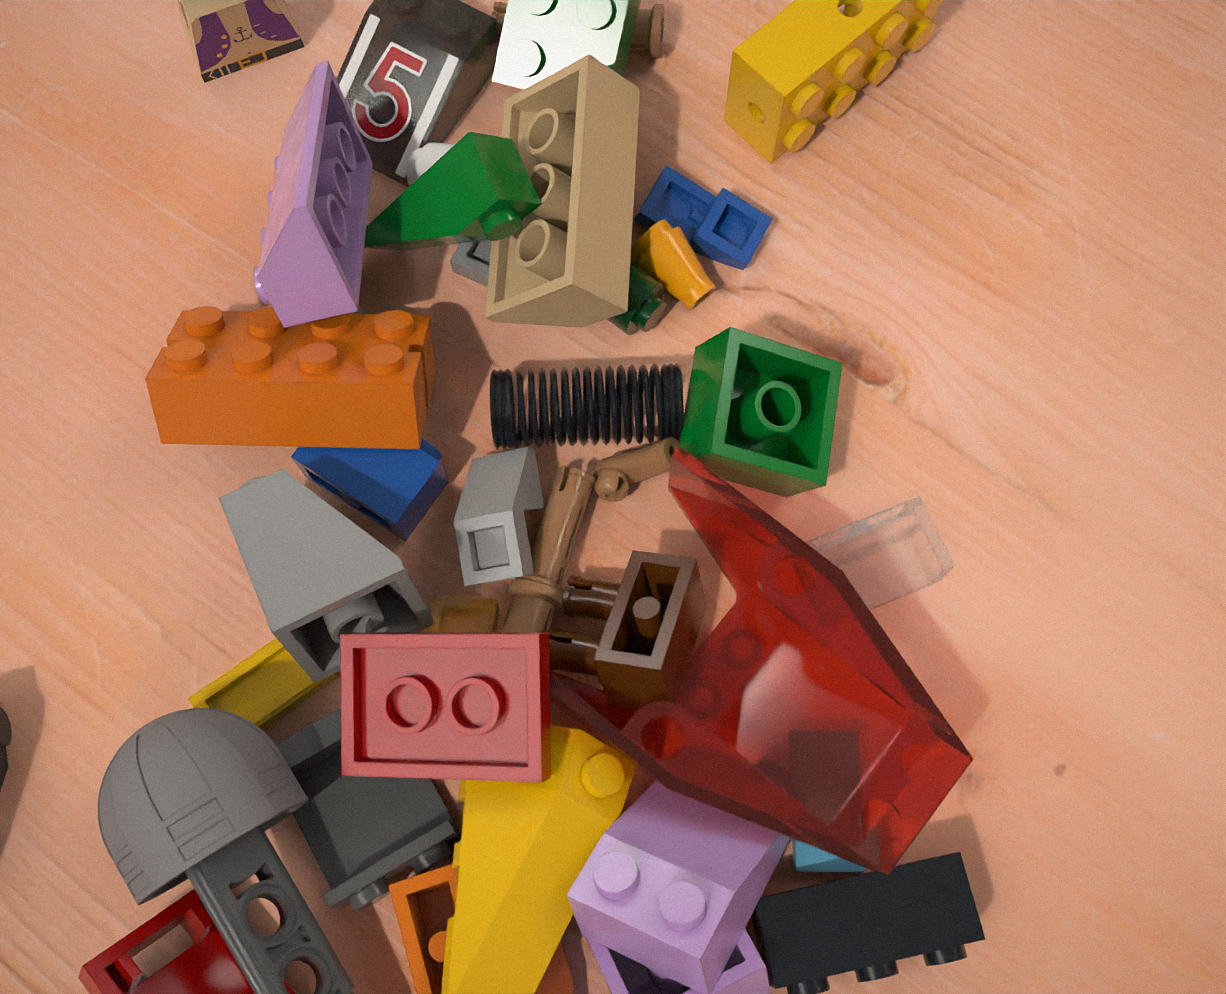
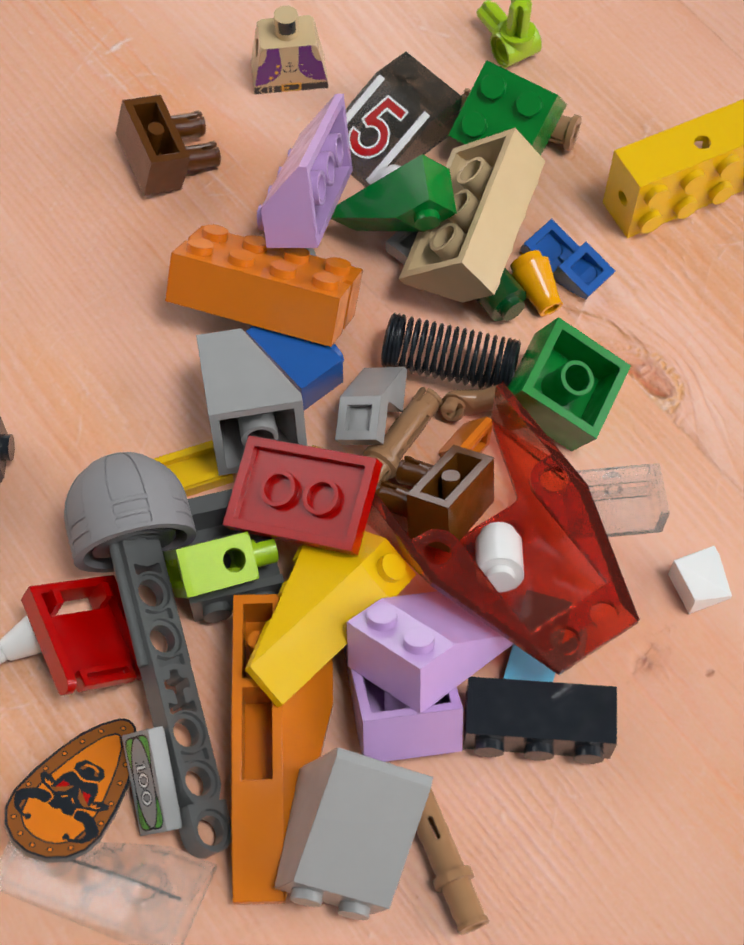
camera: 15 degrees right, 10 degrees down
(81, 204) = (156, 147): none -> reddish brown brick
(348, 838) = (201, 569): none -> lime torso
(644, 525) = (471, 435): none -> orange slope
(744, 703) = (500, 555): none -> white brick
(1015, 644) = (700, 579): none -> white slope

